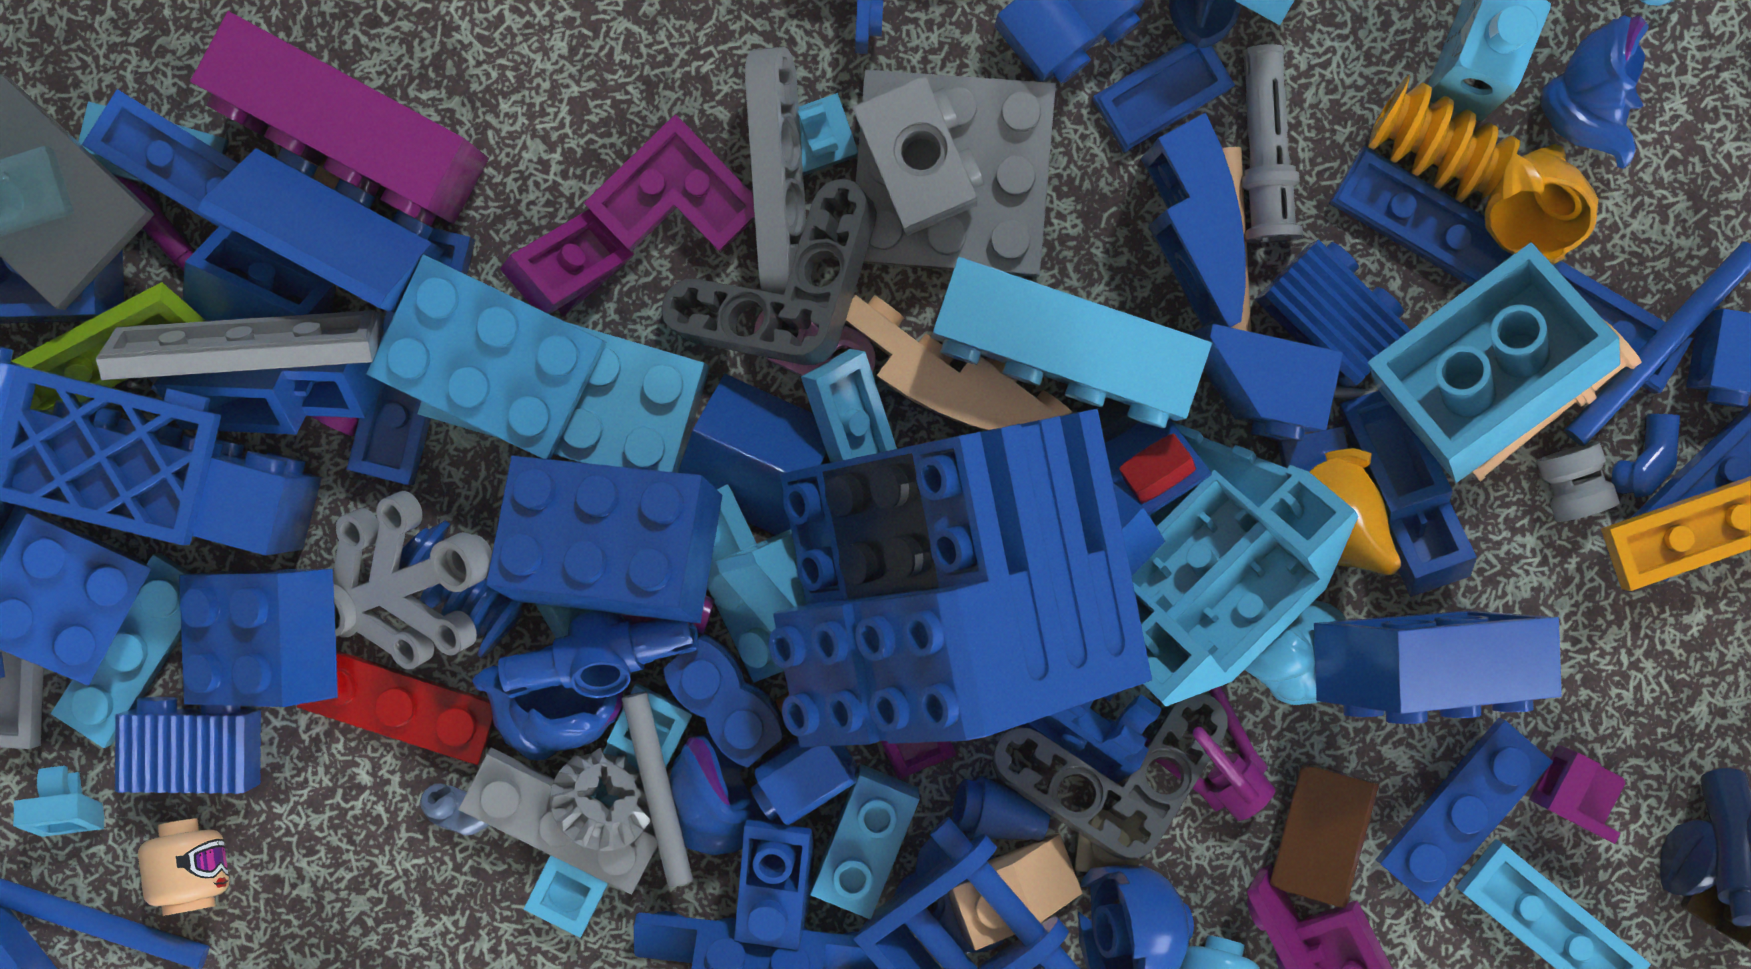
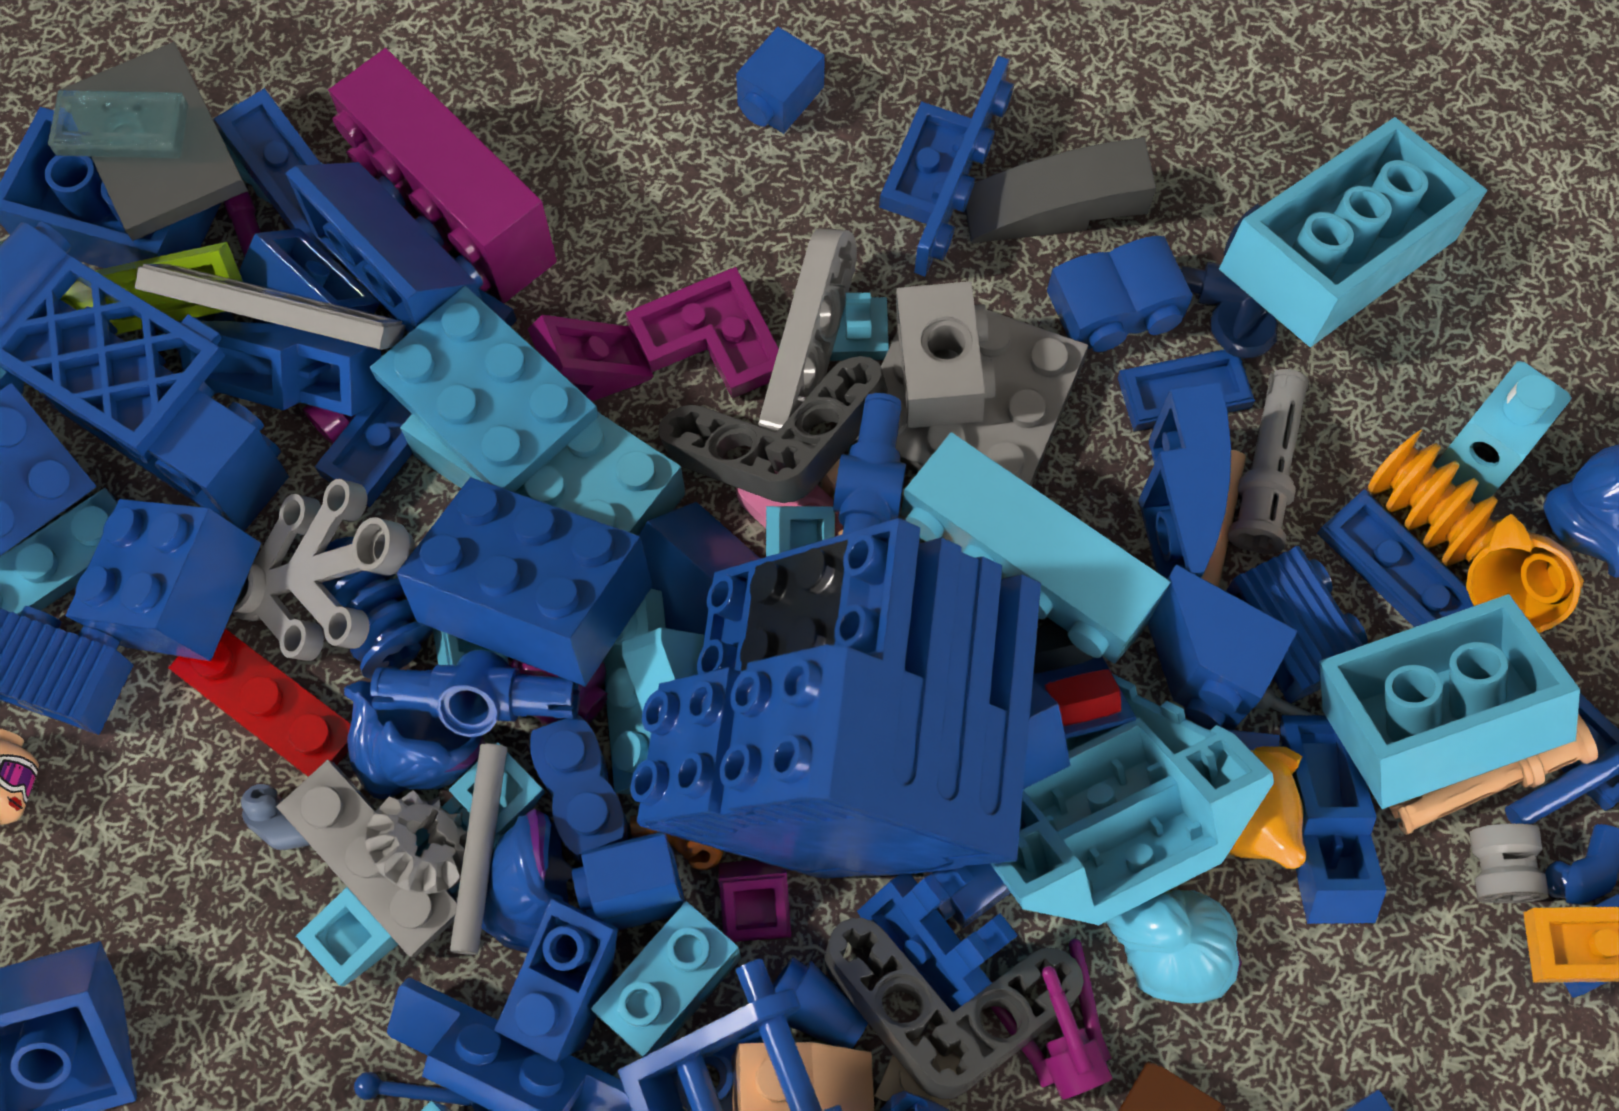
camera: 20 degrees right, 20 degrees down
(894, 328) = (871, 475): none -> blue pin
(1437, 664) = (1321, 976): brick -> none

